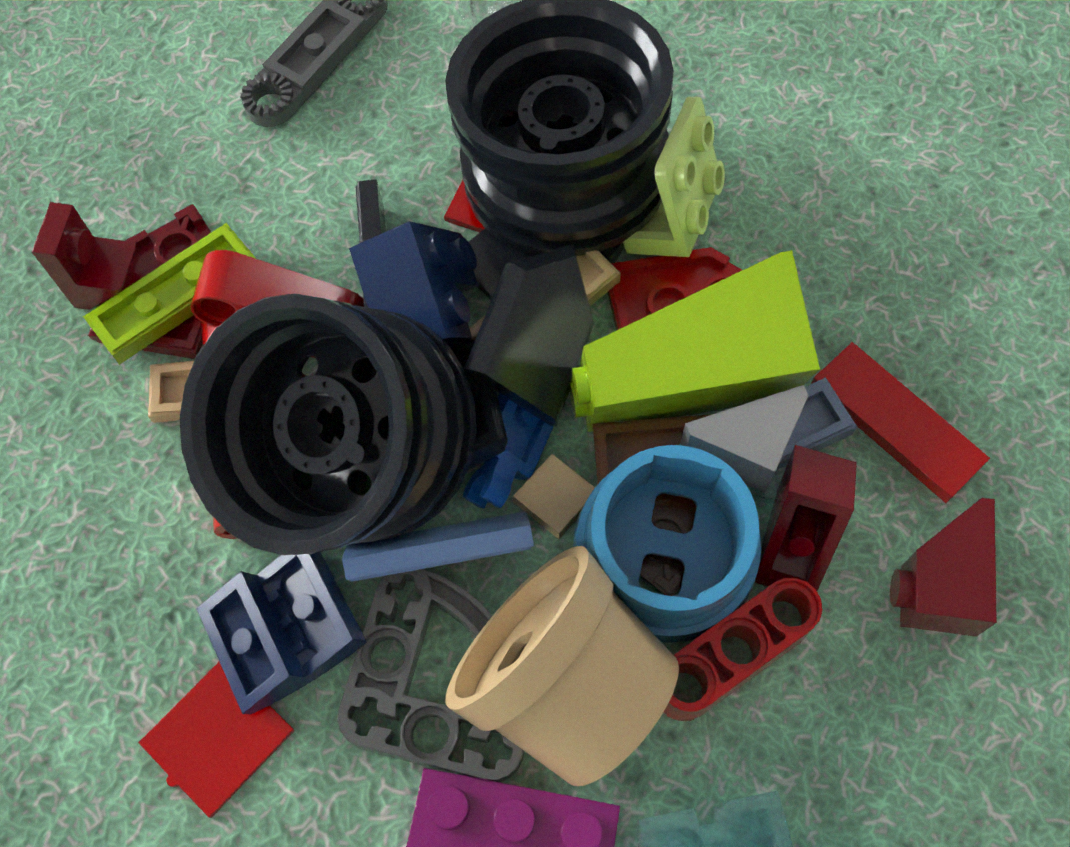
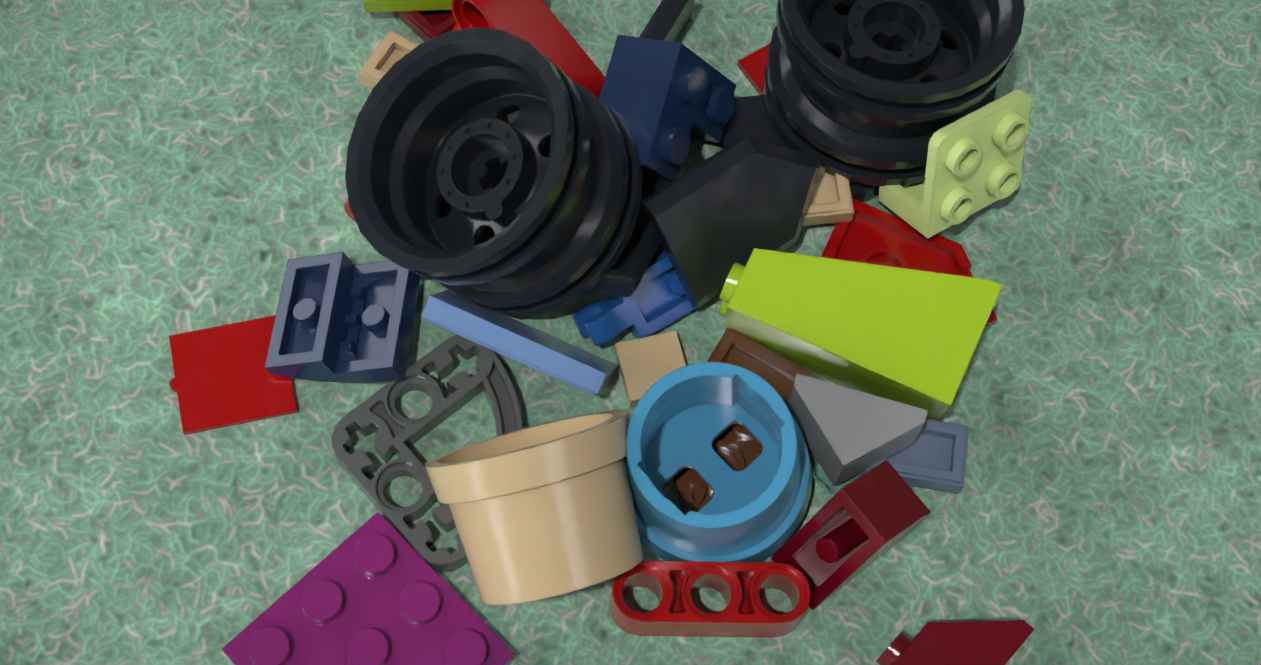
camera: 25 degrees right, 0 degrees up
(902, 423) = (1014, 515): red tile -> none

